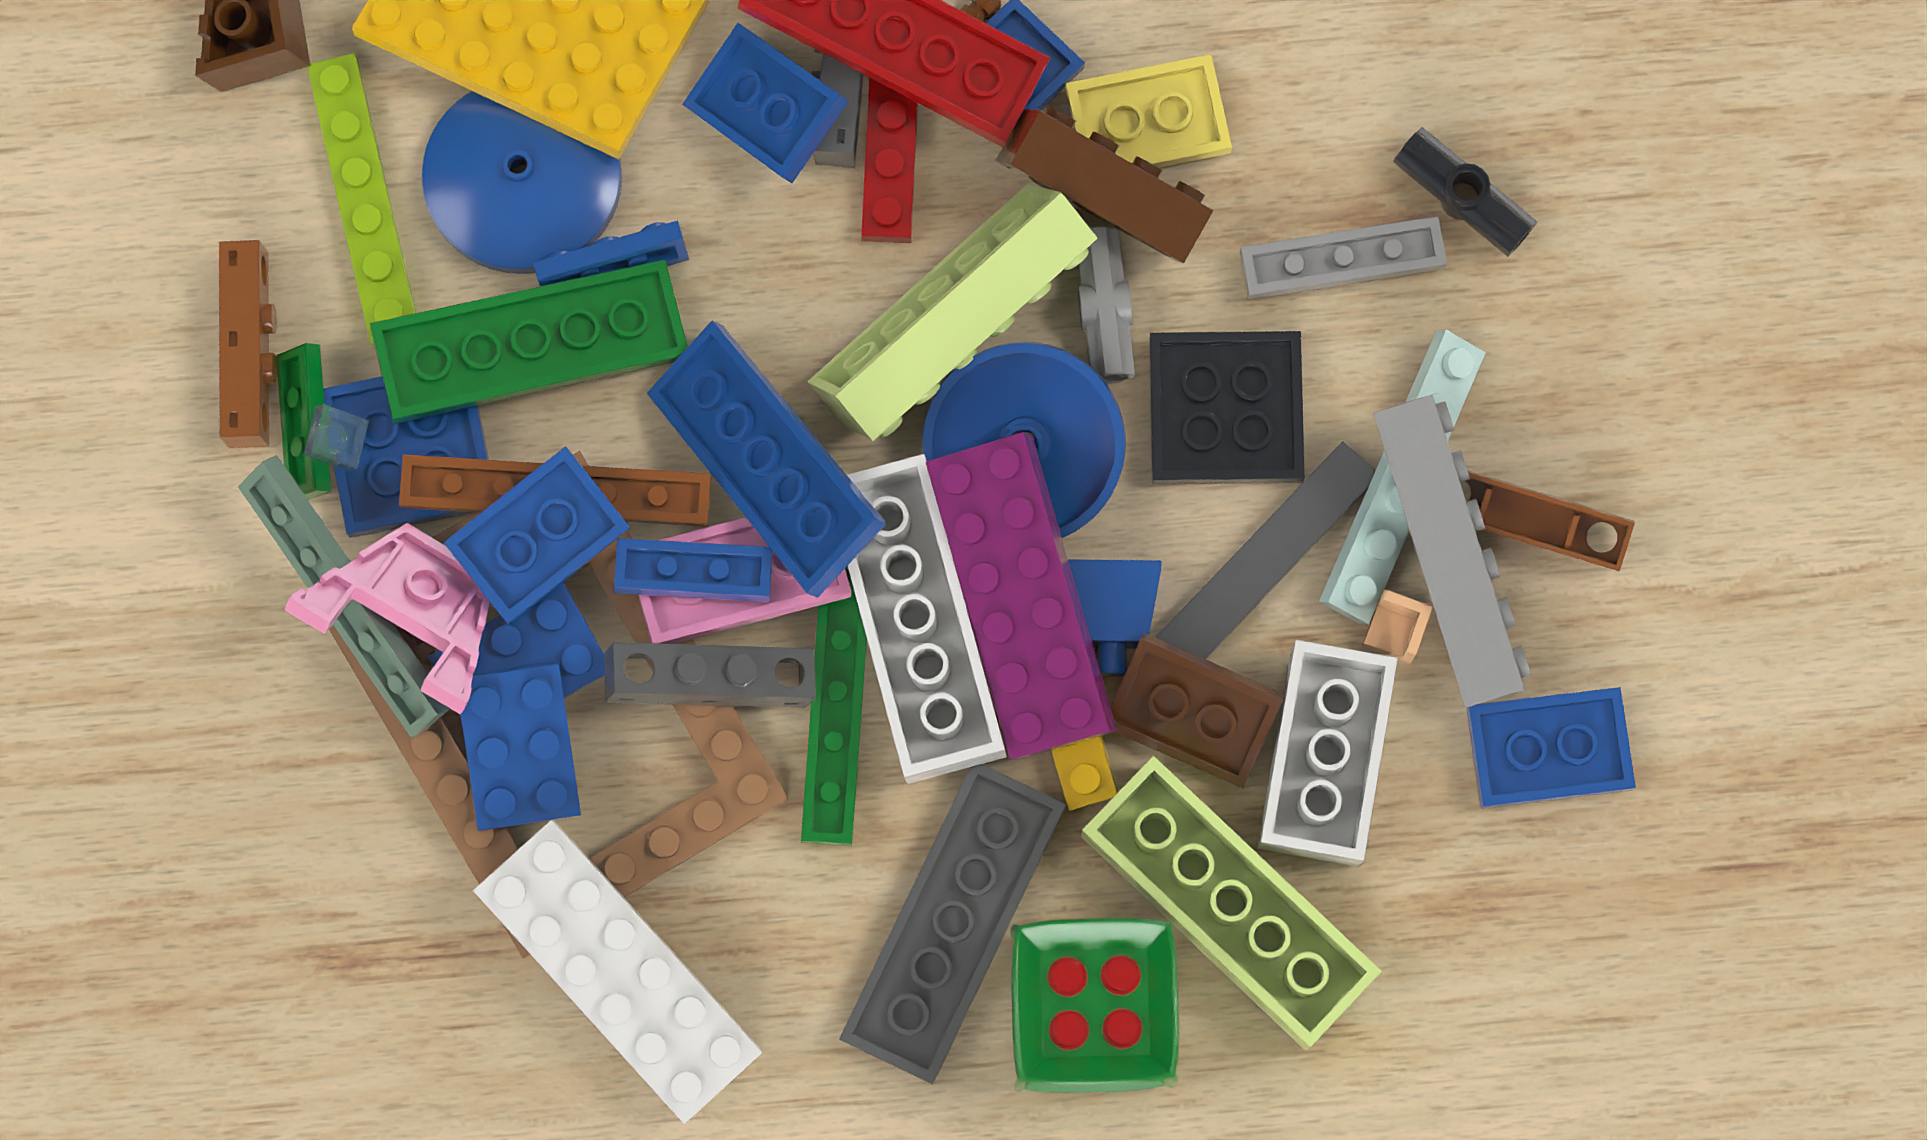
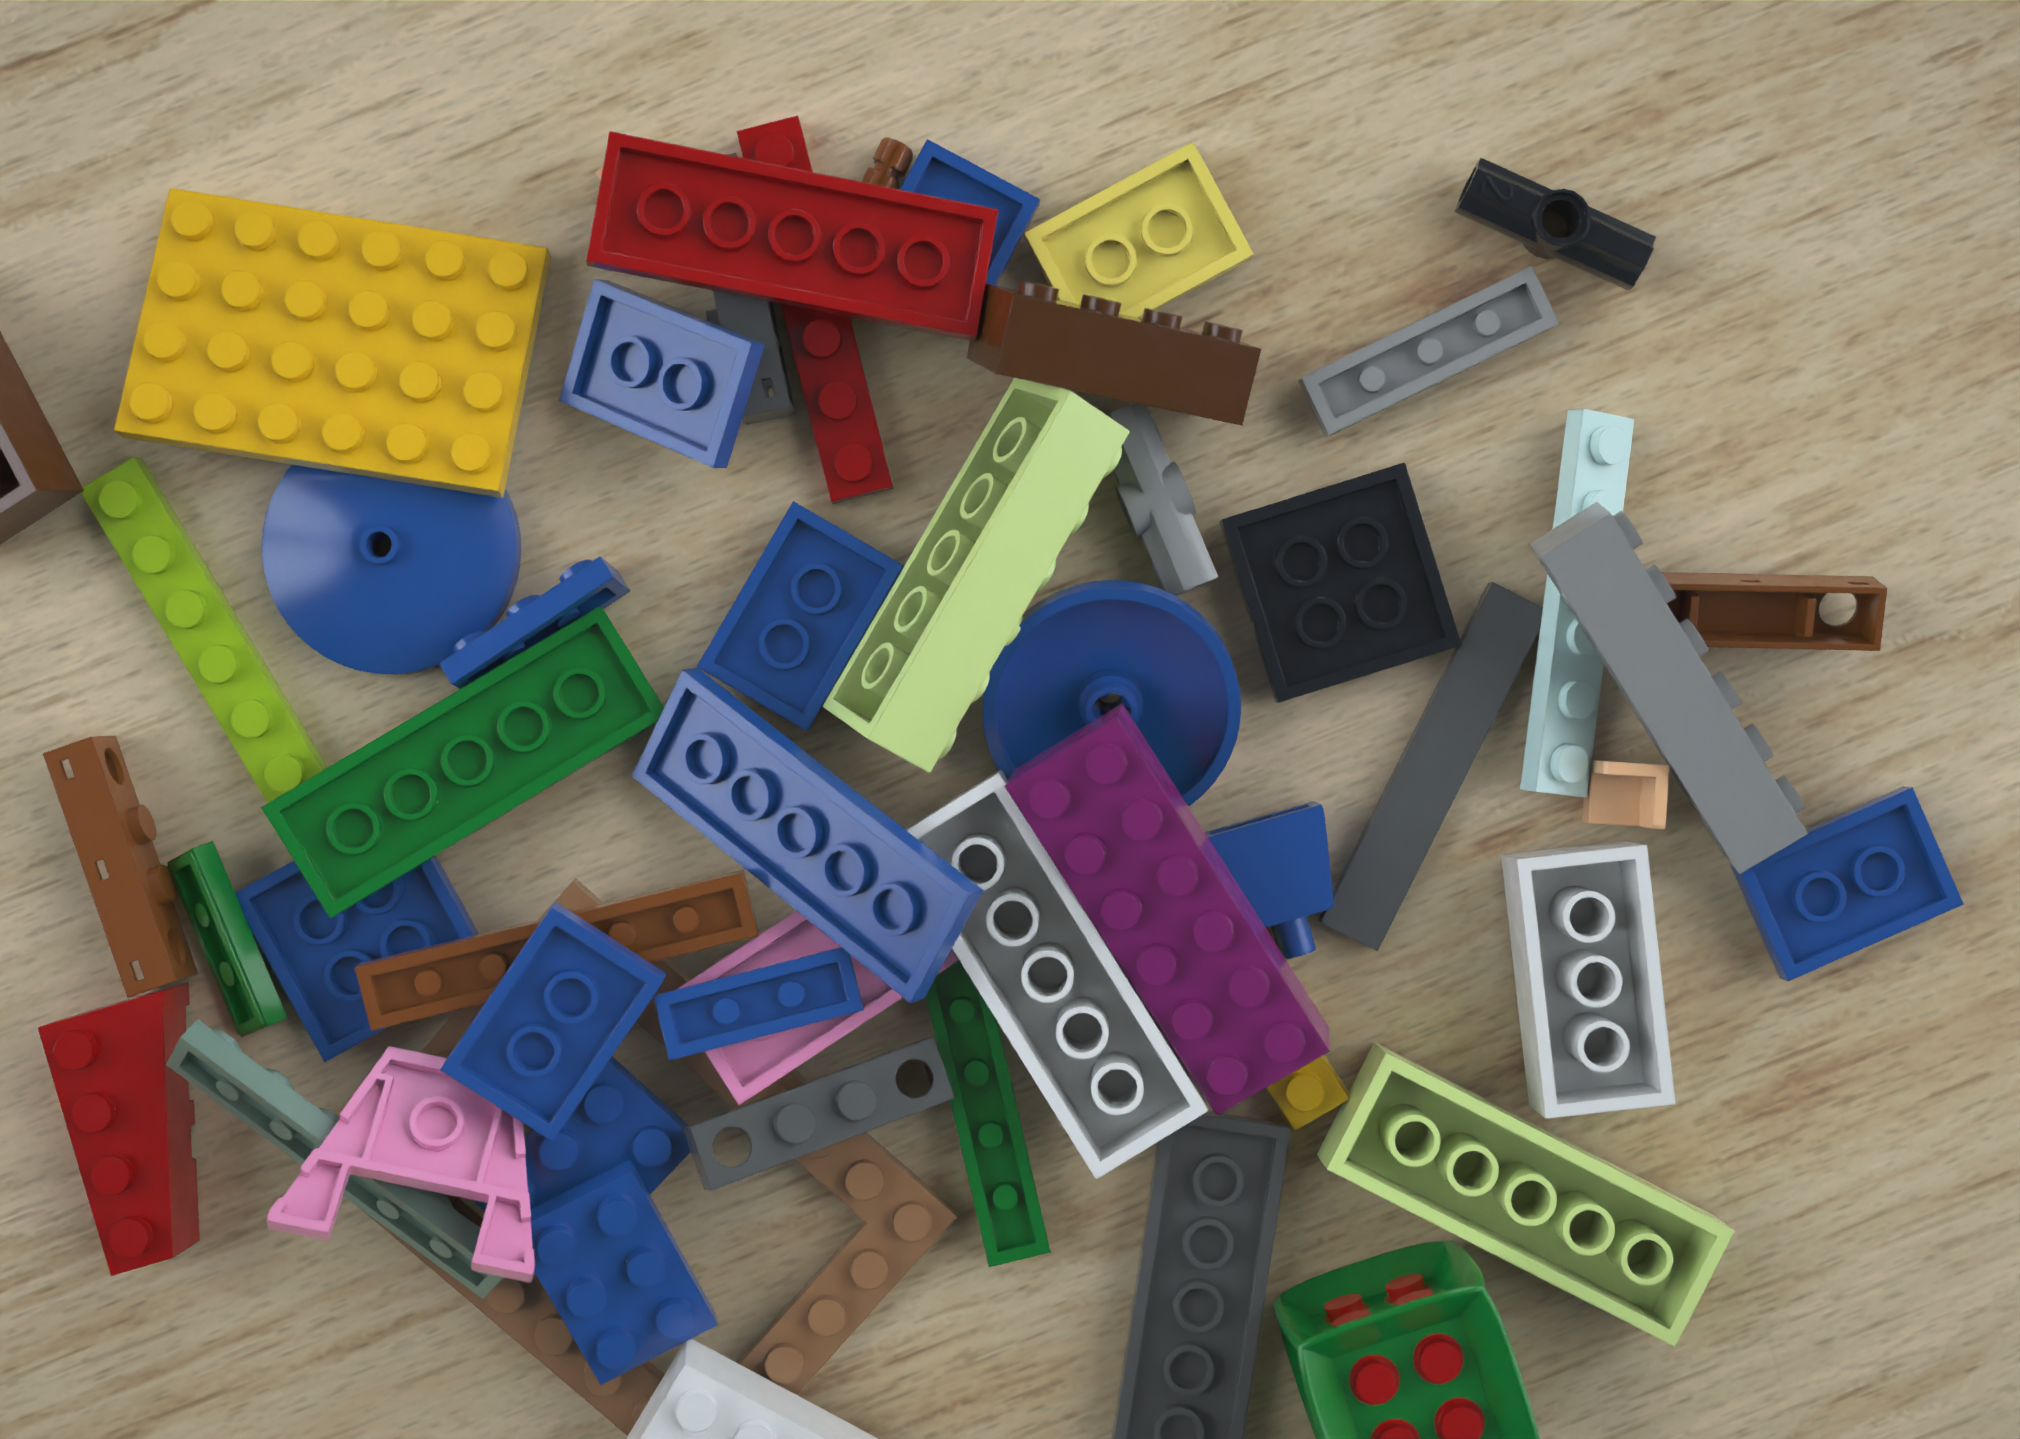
camera: 15 degrees left, 10 degrees up
(188, 532) = (130, 1123): none -> red wedge
(336, 437) = (269, 956): clear light blue plate -> none
(811, 312) = (800, 616): none -> blue plate
(1194, 710) = (1413, 971): reddish brown plate -> none

